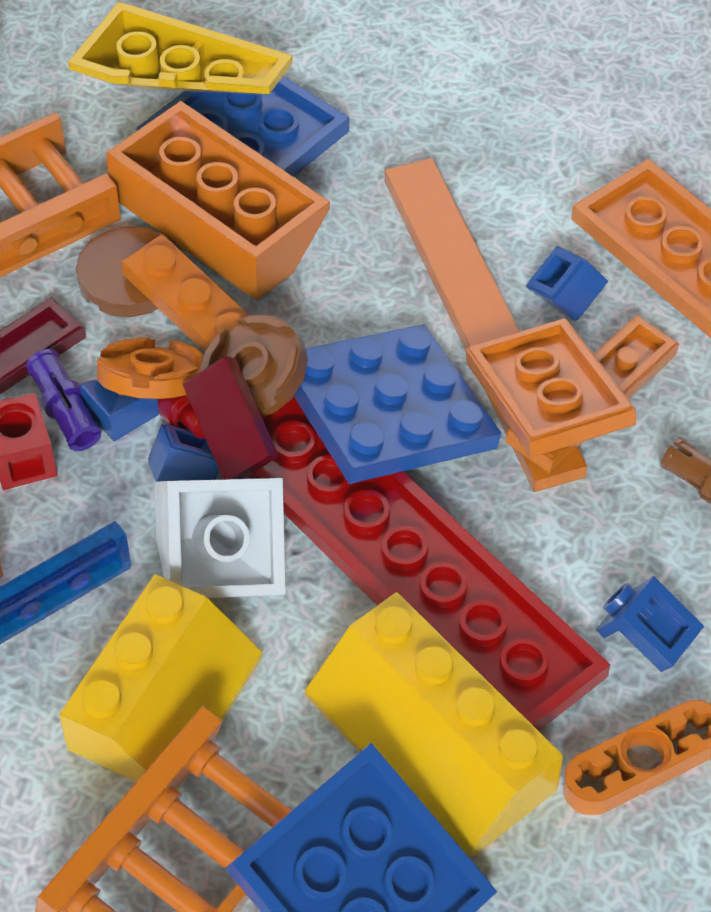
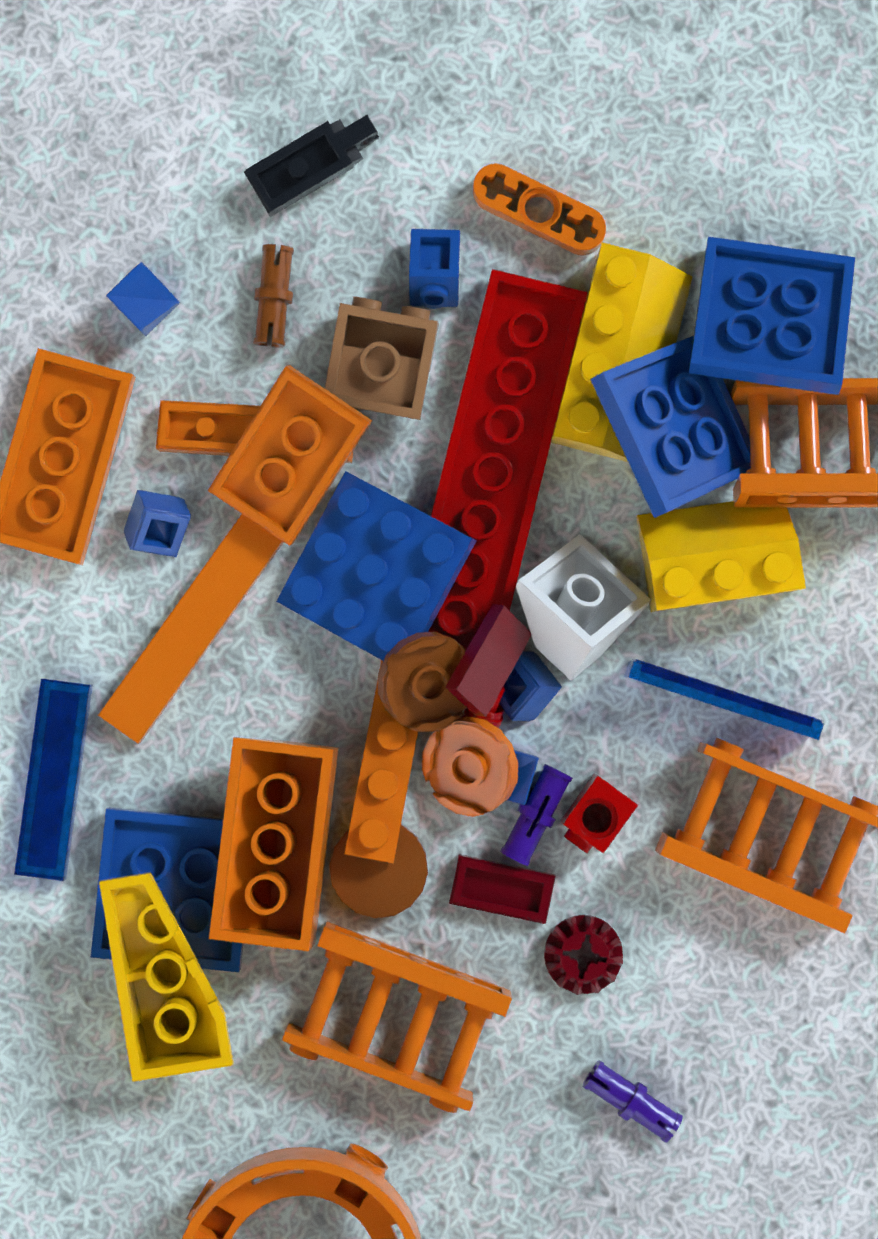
camera: 125 degrees left, 35 degrees up
(316, 694) = (674, 426): none -> blue plate
(406, 111) = (53, 779): none -> clear blue tile
(589, 520) = (382, 357): none -> medium nougat plate

